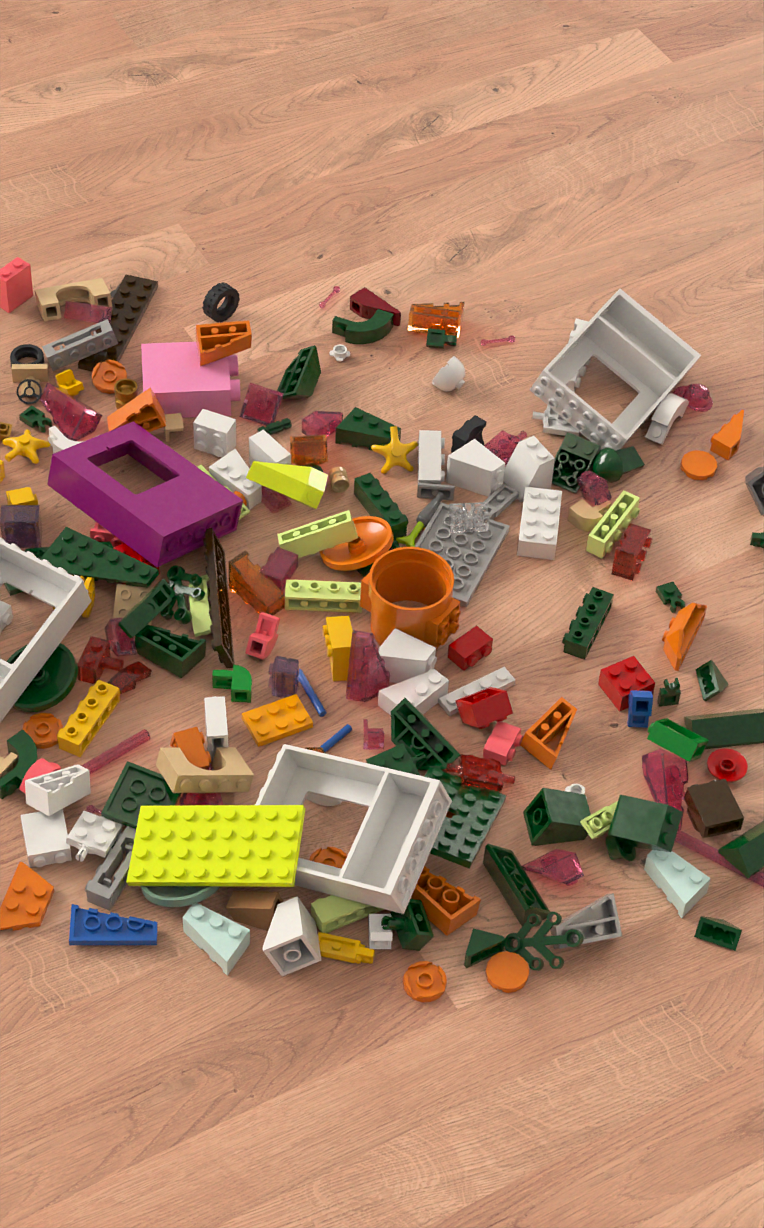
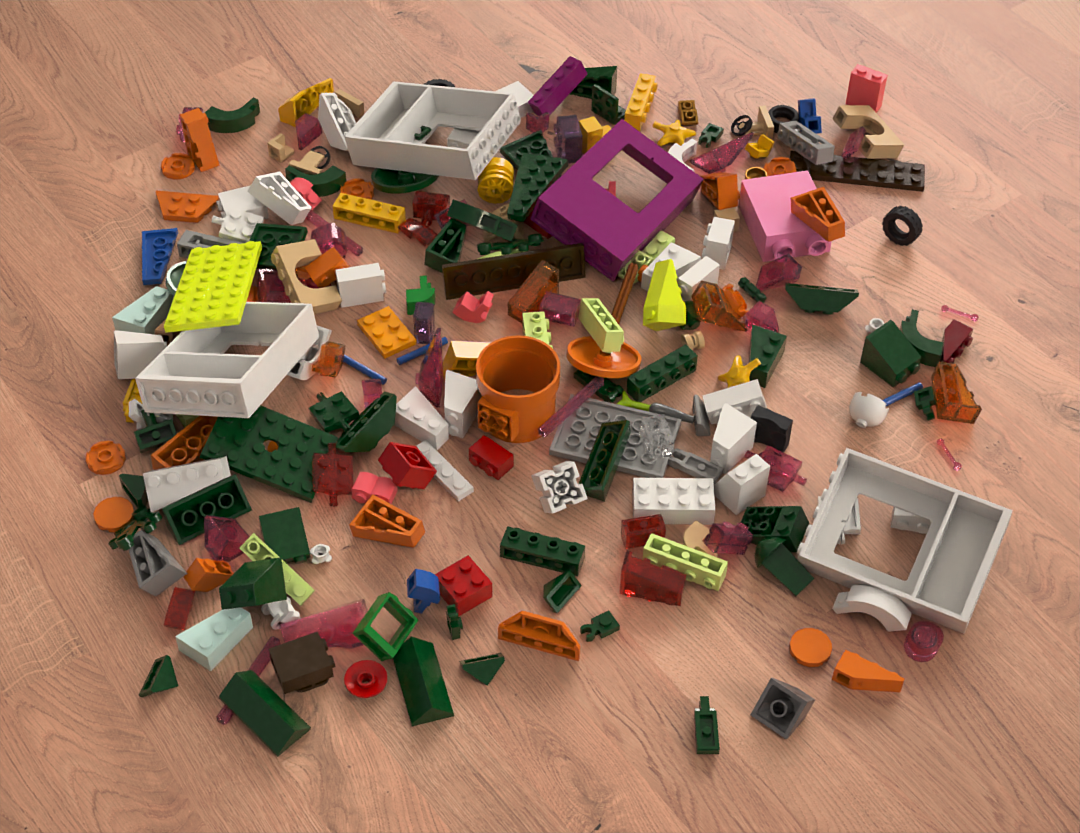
camera: 85 degrees right, 0 degrees up
(38, 338) = (808, 115): none -> blue brick
(143, 749) = (330, 236): none -> clear pink brick
(267, 515) = (624, 292): none -> dark orange axle
(285, 435) = (735, 300): none -> orange tile
(384, 348) = (890, 354): none -> dark green slope
(426, 356) = (902, 394): none -> blue bar
(492, 557) = (605, 458): none -> dark green slope
(494, 887) = (176, 482): none -> white wedge
(522, 595) = (559, 487): none -> white brick
(576, 546) = (638, 530): none -> clear red brick
(599, 882) = (207, 574): none -> orange slope
(630, 620) = (560, 590): none -> dark green slope
(634, 908) = (179, 608): none -> clear red slope

